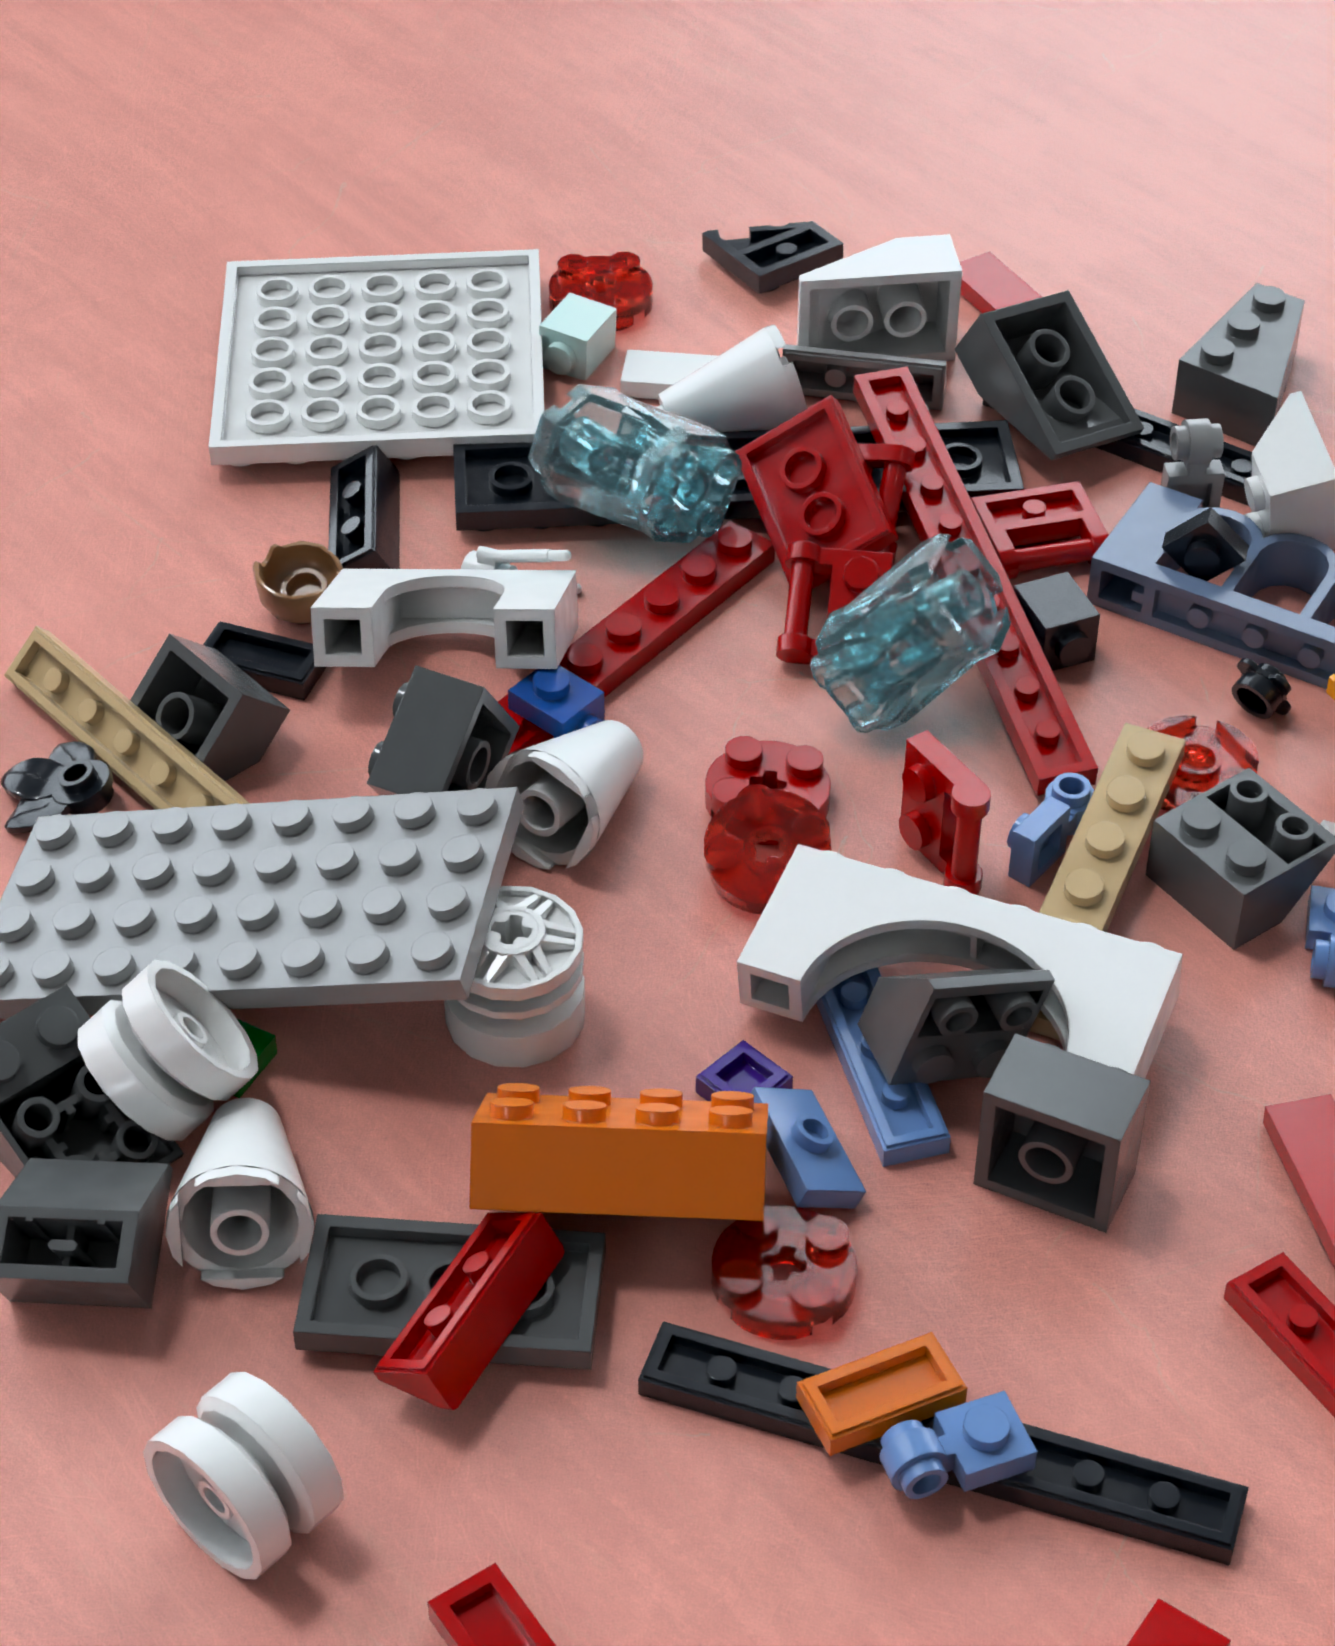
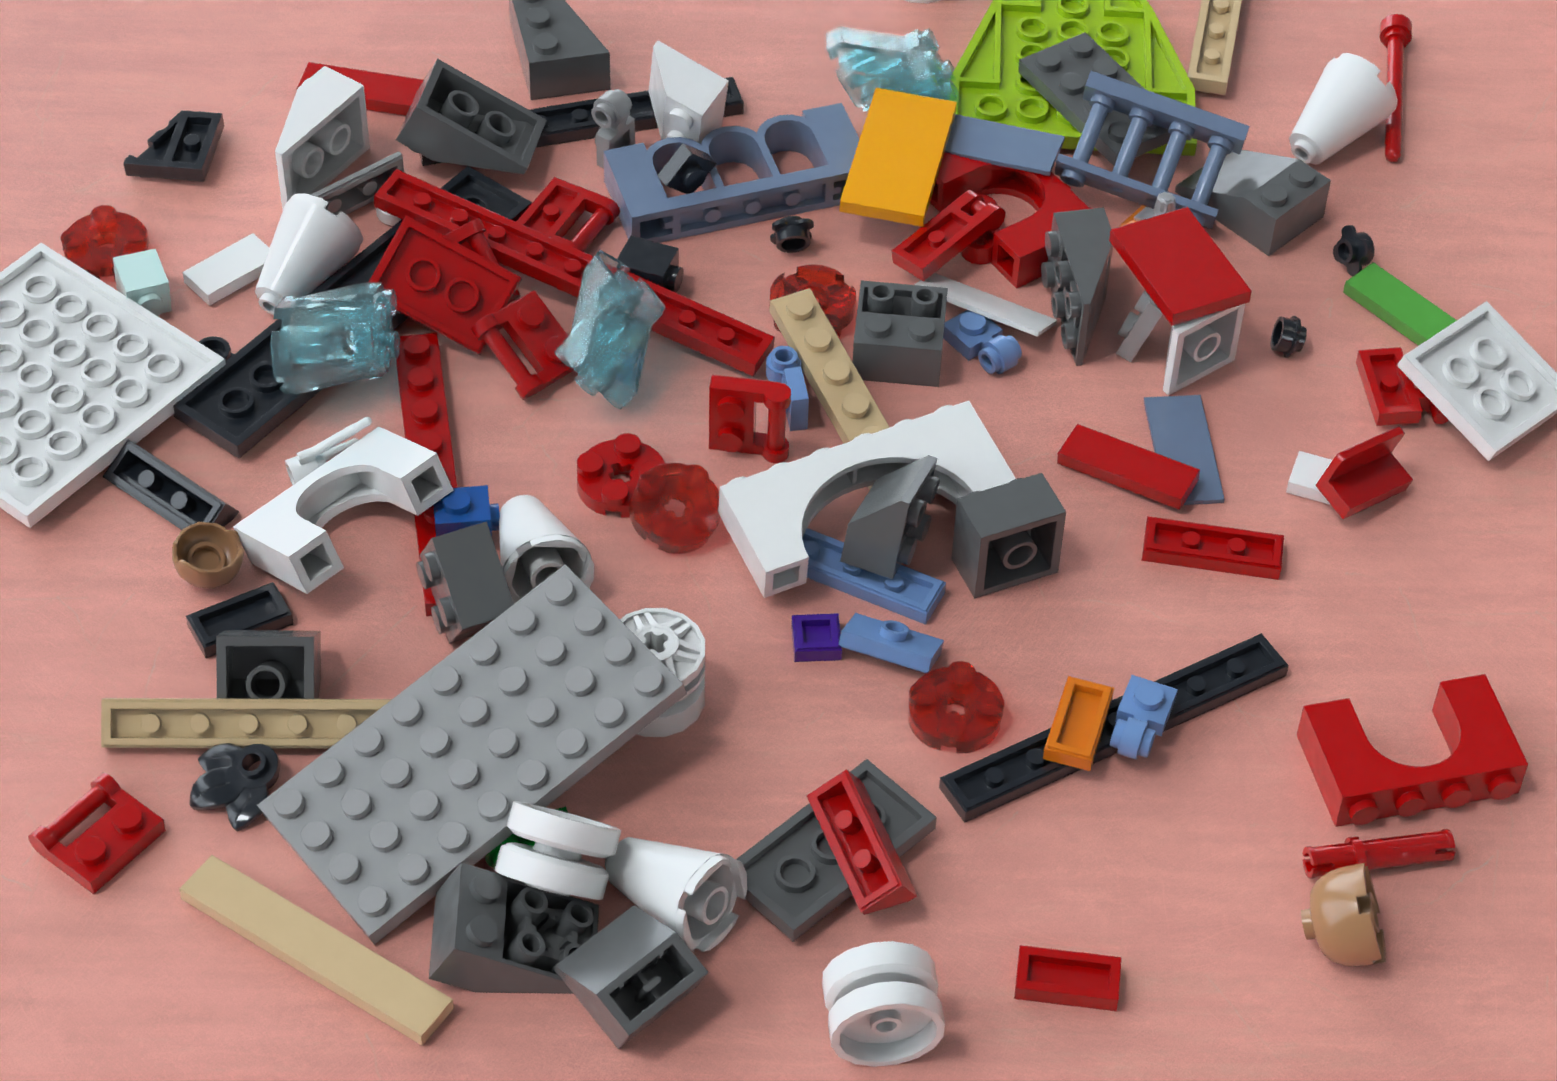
camera: 50 degrees left, 5 degrees up
(619, 1153) = (838, 712): orange brick -> none

